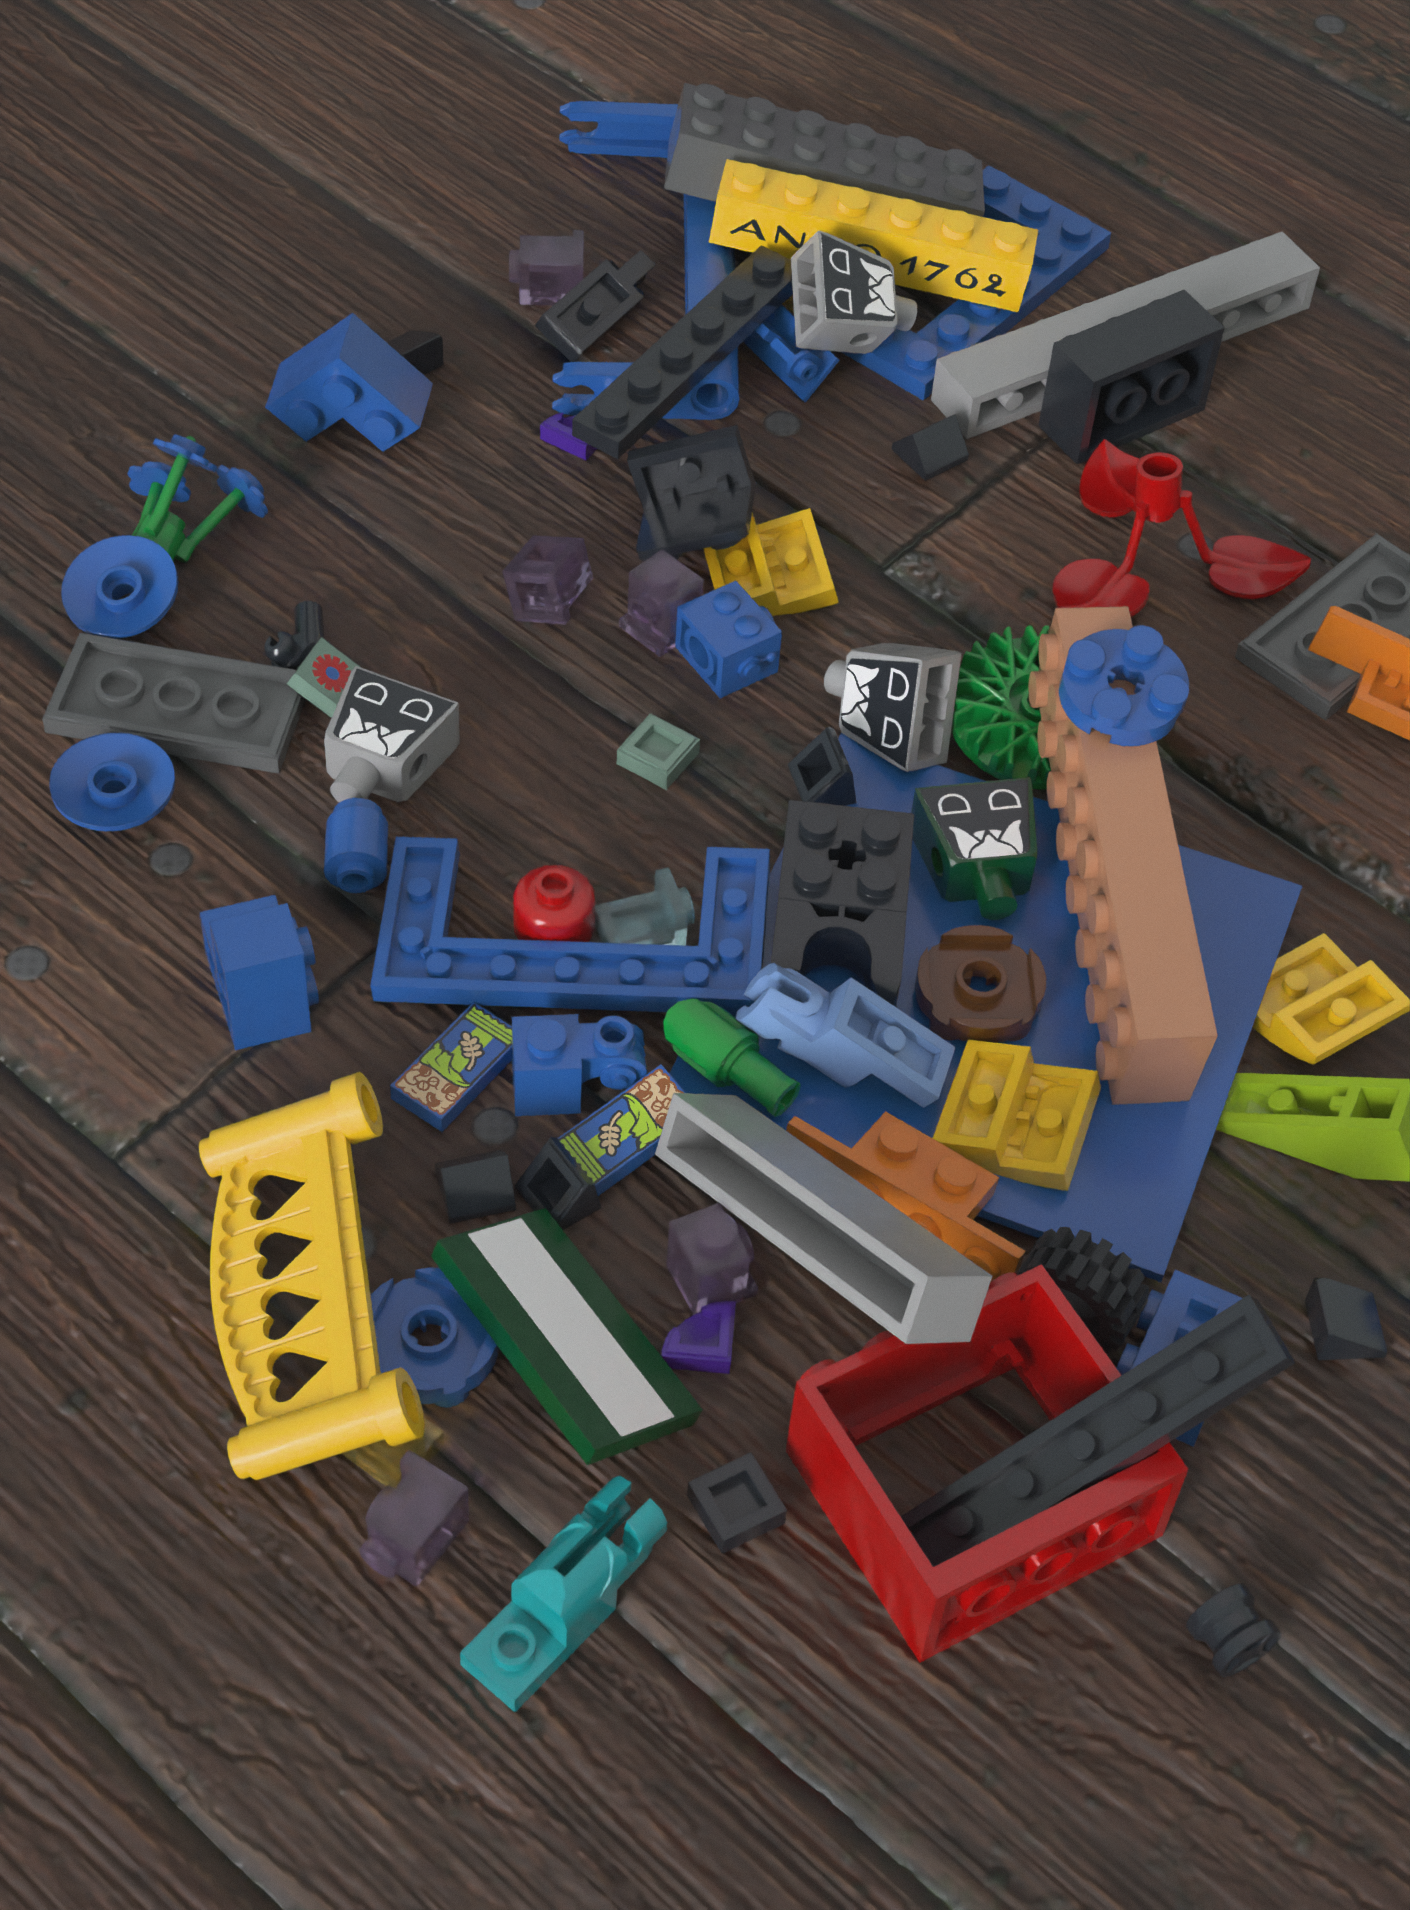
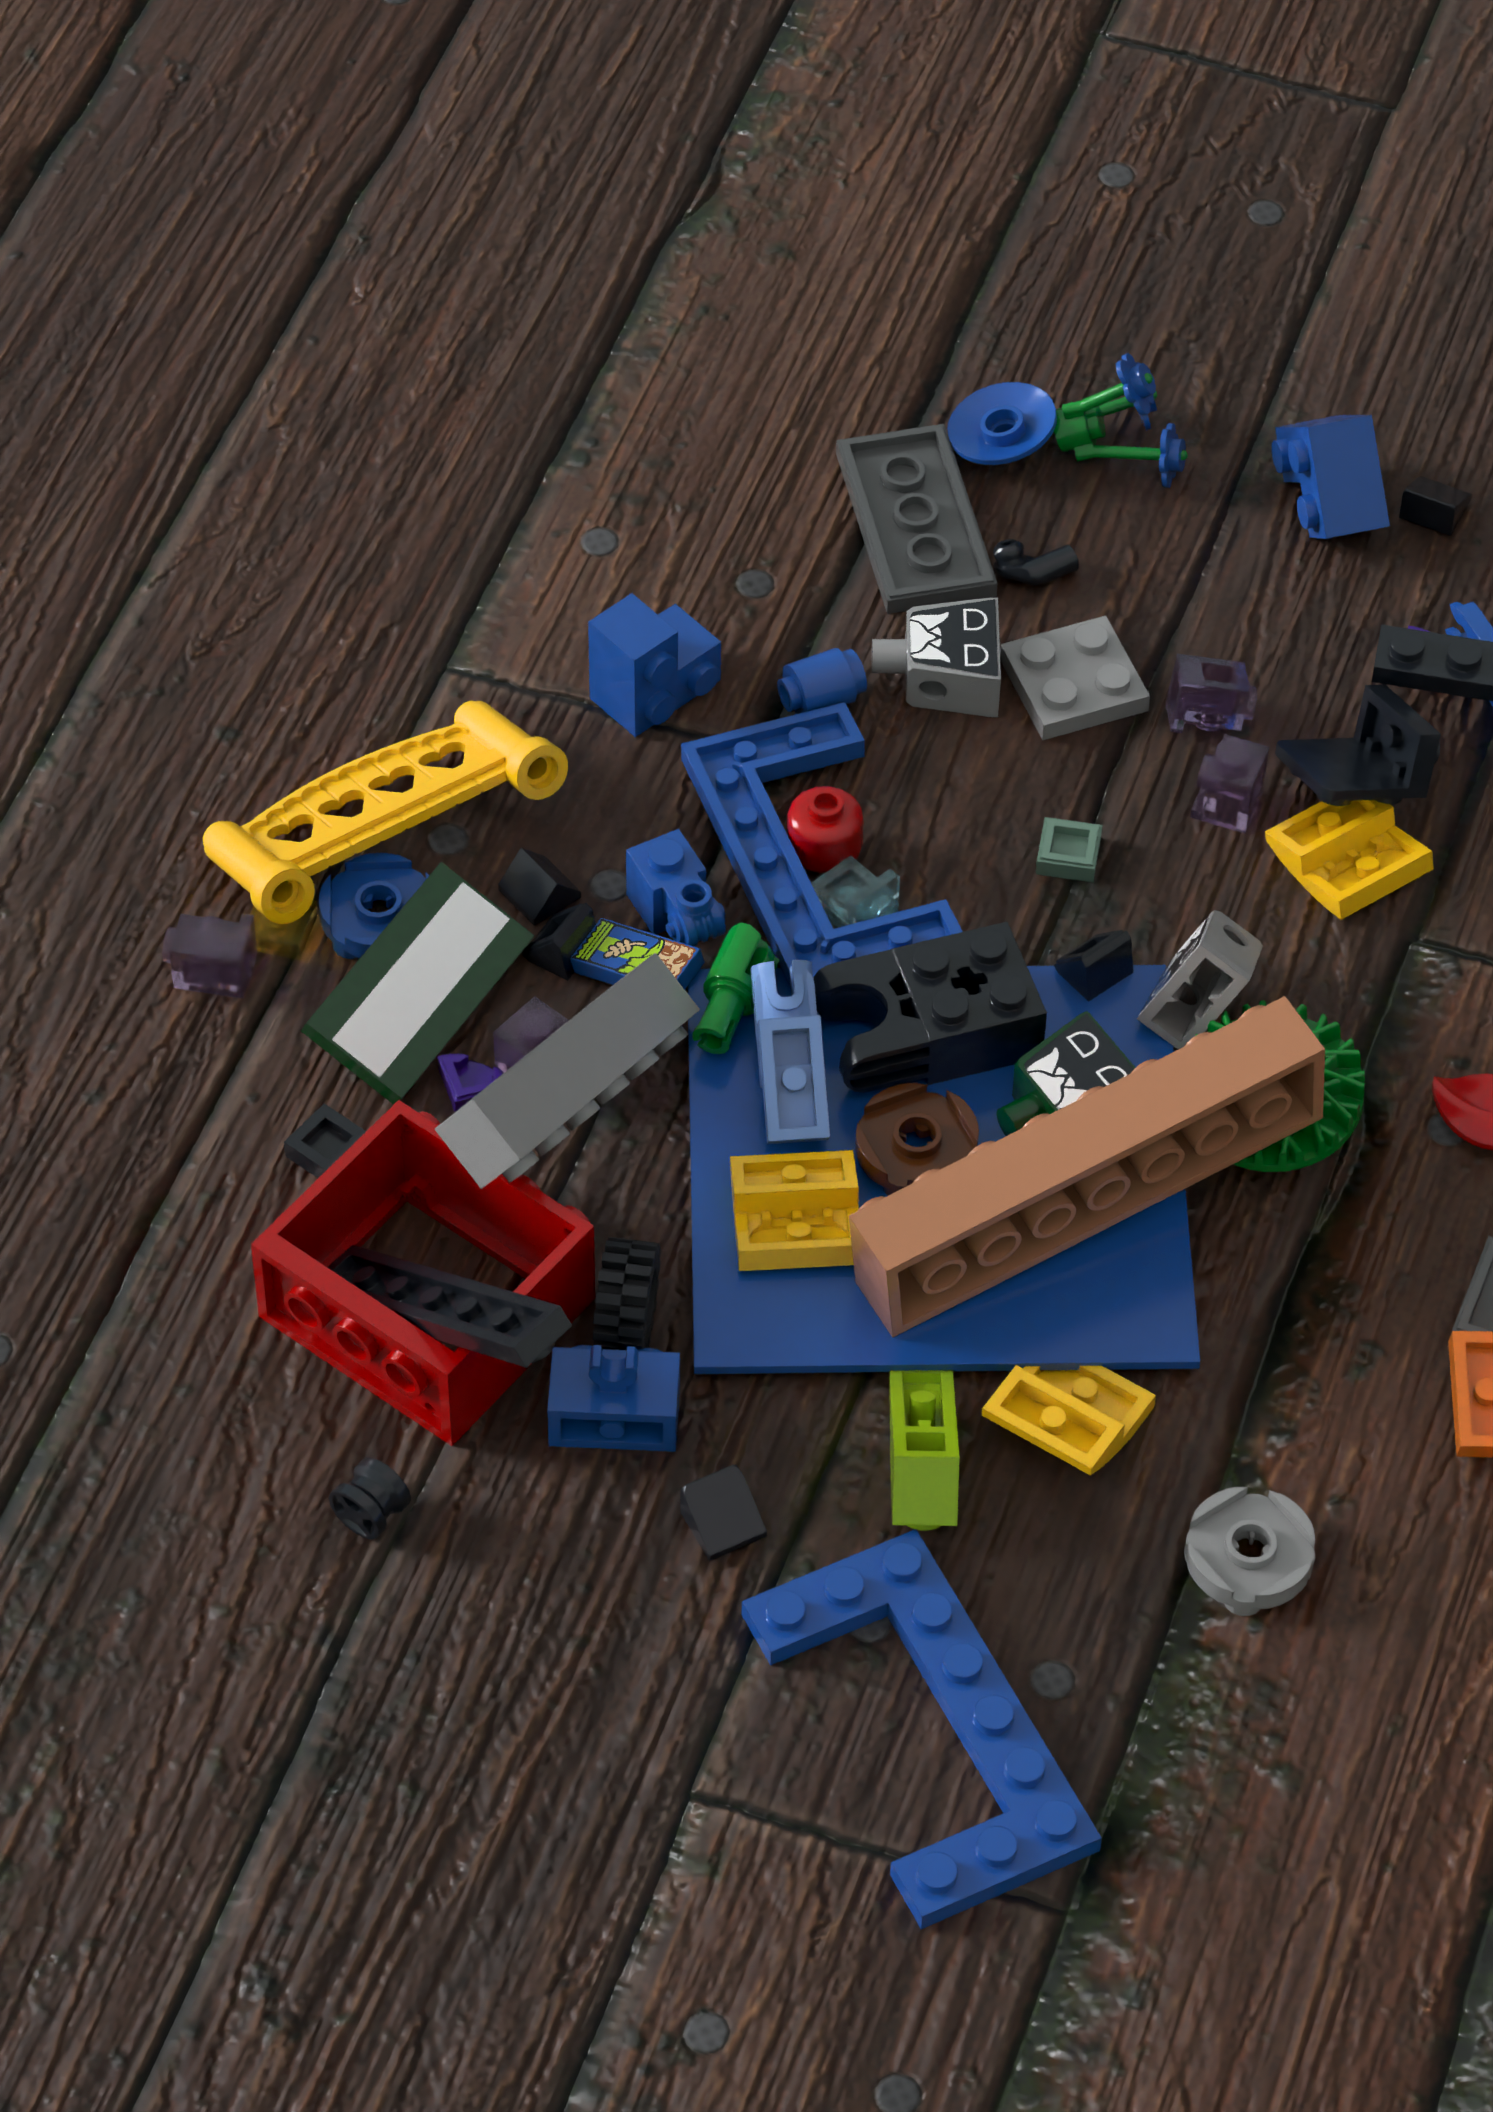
camera: 70 degrees right, 0 degrees up
(112, 782) = (792, 506): blue dish -> none
(323, 676) = (999, 583): sand green tile -> none
(455, 1067) = (623, 825): tile -> none
(459, 660) = (1074, 677): none -> light grey plate
(563, 1595) = (195, 1062): teal plate -> none
(728, 639) = (1223, 846): blue head -> none
(924, 1183) = (687, 1158): orange bracket -> none
(1130, 656) = (1216, 1038): blue plate -> none

